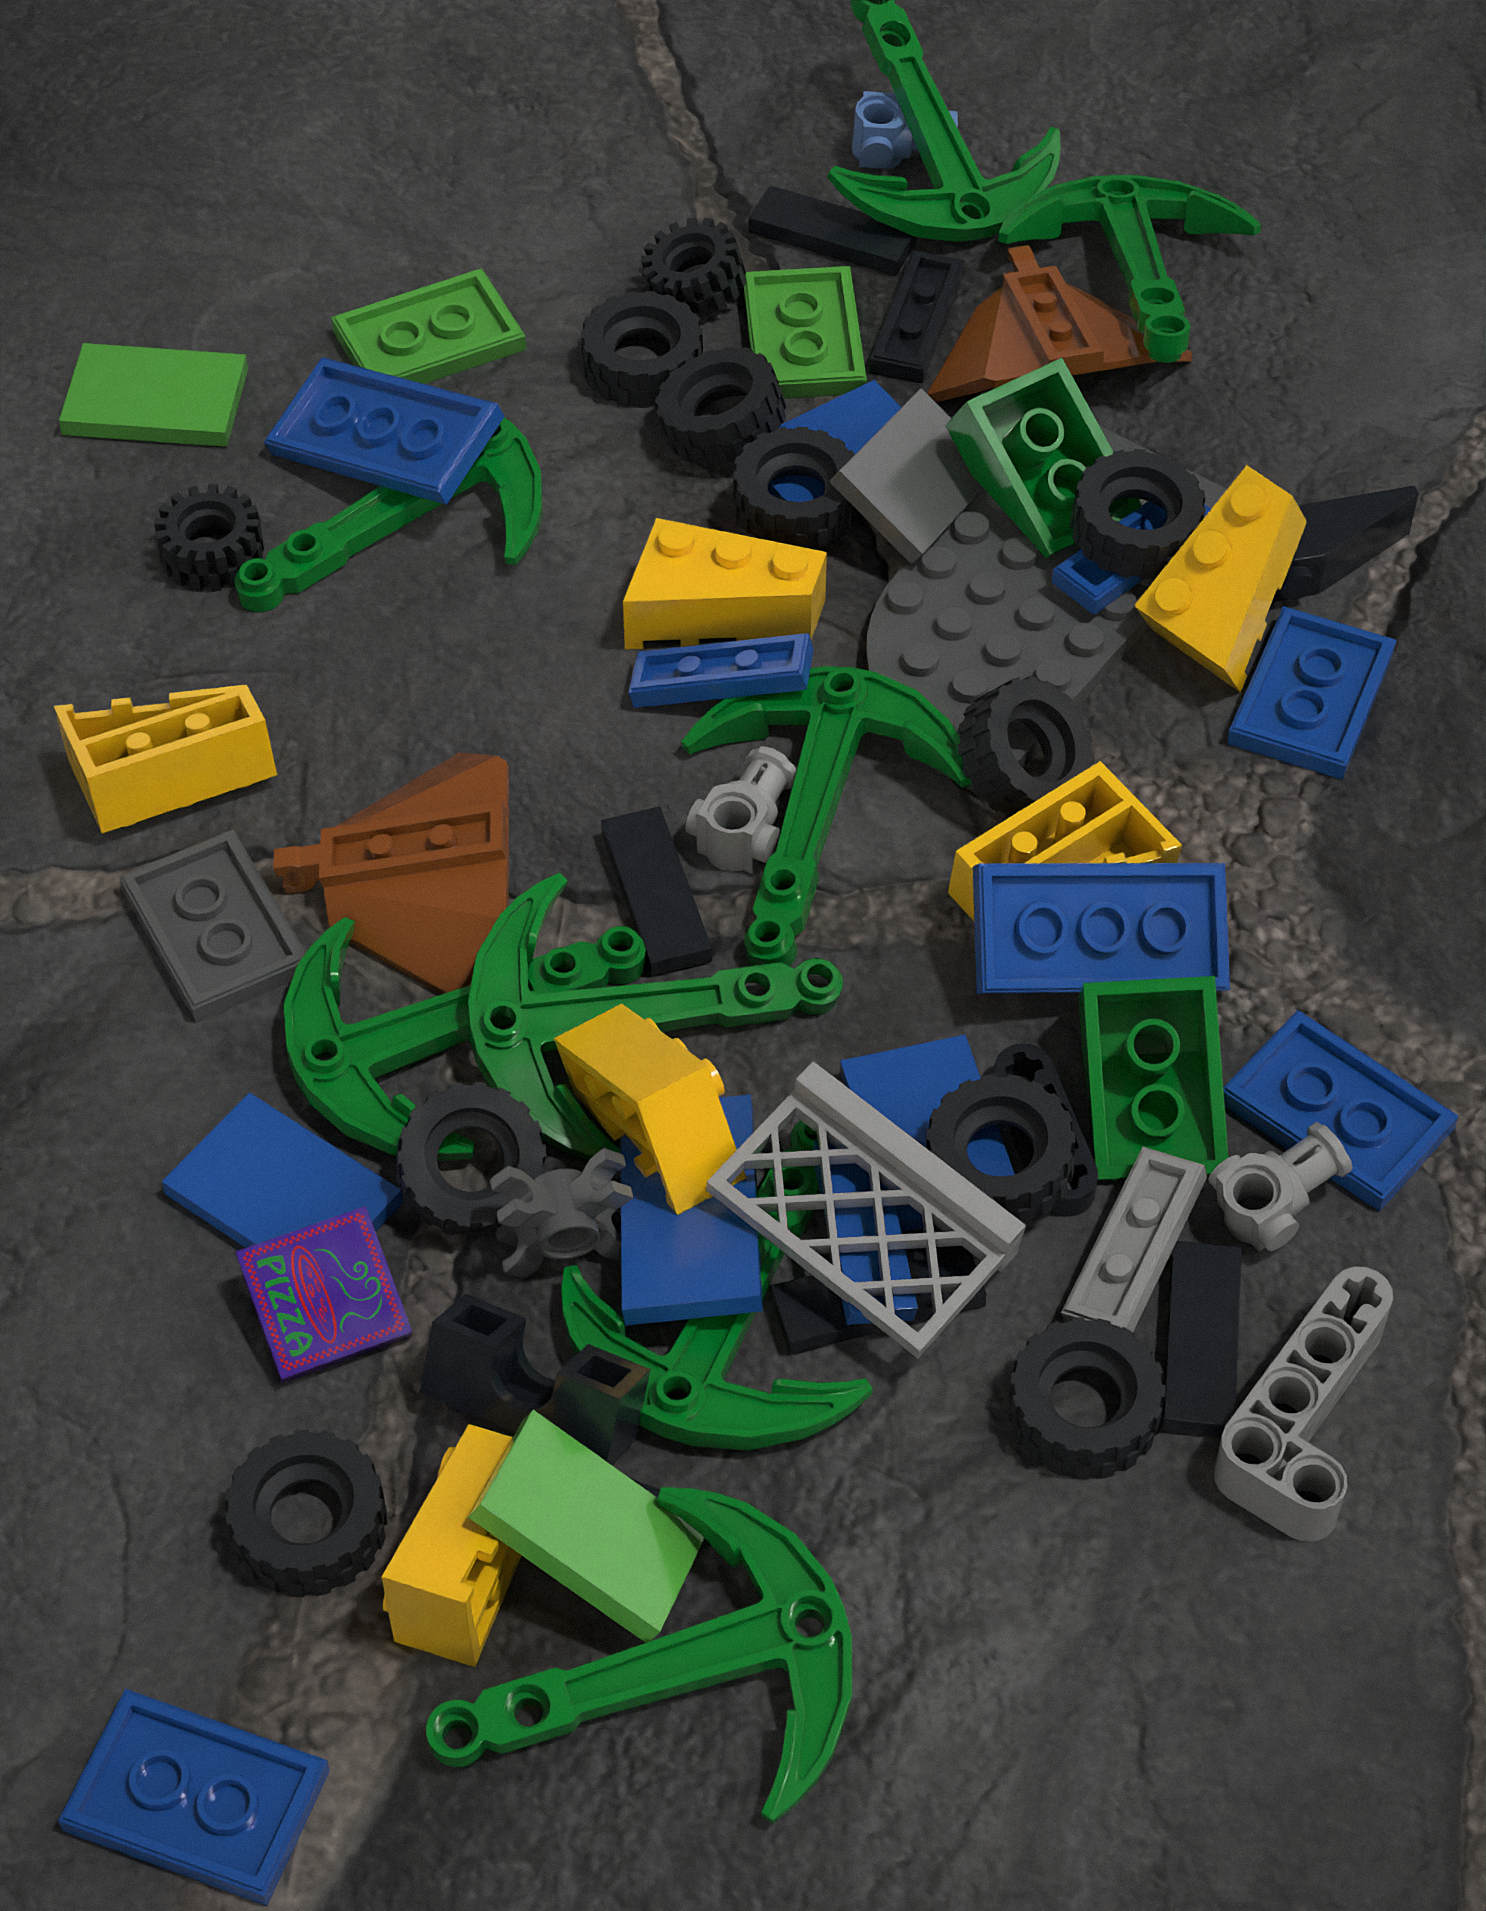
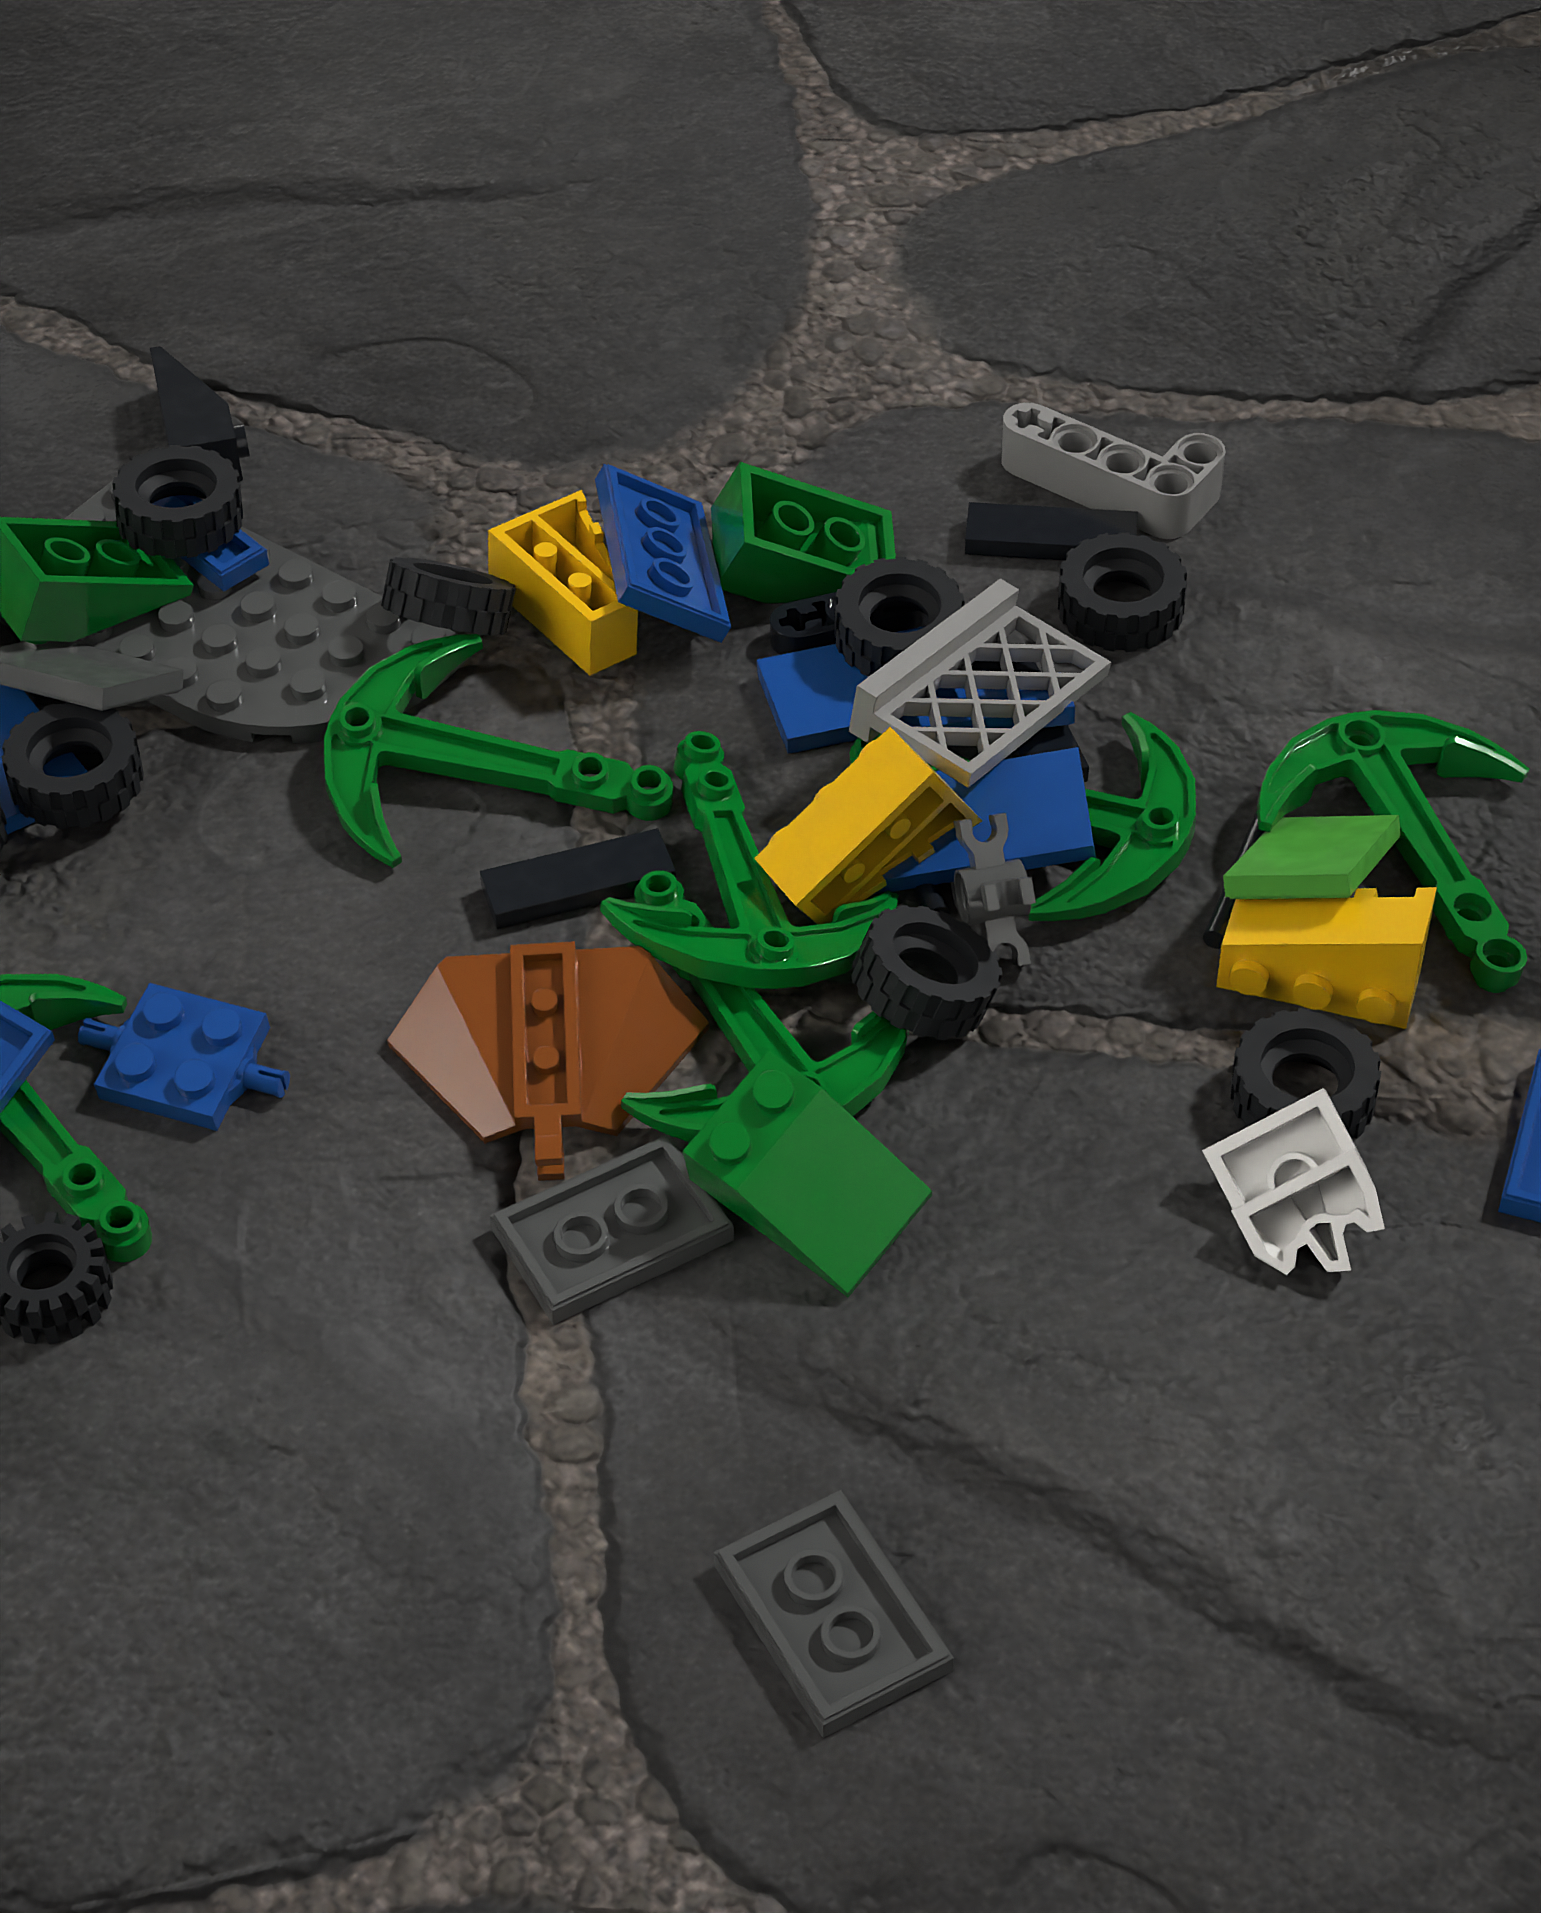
camera: 90 degrees left, 5 degrees down
(149, 1480) = (1297, 1184): none -> white plate
(165, 754) = (397, 1278): yellow wedge -> none
(214, 1042) = (805, 1173): none -> green slope
(273, 1176) = (963, 1131): blue tile -> none
(323, 1294) = (1076, 1081): dark purple tile -> none
(449, 609) = (183, 1056): none -> blue plate
(482, 1370) = (1154, 945): black arch -> none
(721, 586) = (195, 829): yellow wedge -> none
(721, 670) = (313, 822): blue tile -> none
(738, 816) = (503, 805): light grey connector -> none
(1136, 1240) = (972, 556): light grey tile -> none
(1225, 576) = (282, 465): yellow wedge -> none
(1280, 1181) = (923, 476): light grey connector -> none
(1312, 692) = (361, 448): blue tile -> none
(1318, 1077) = (830, 442): blue tile -> none

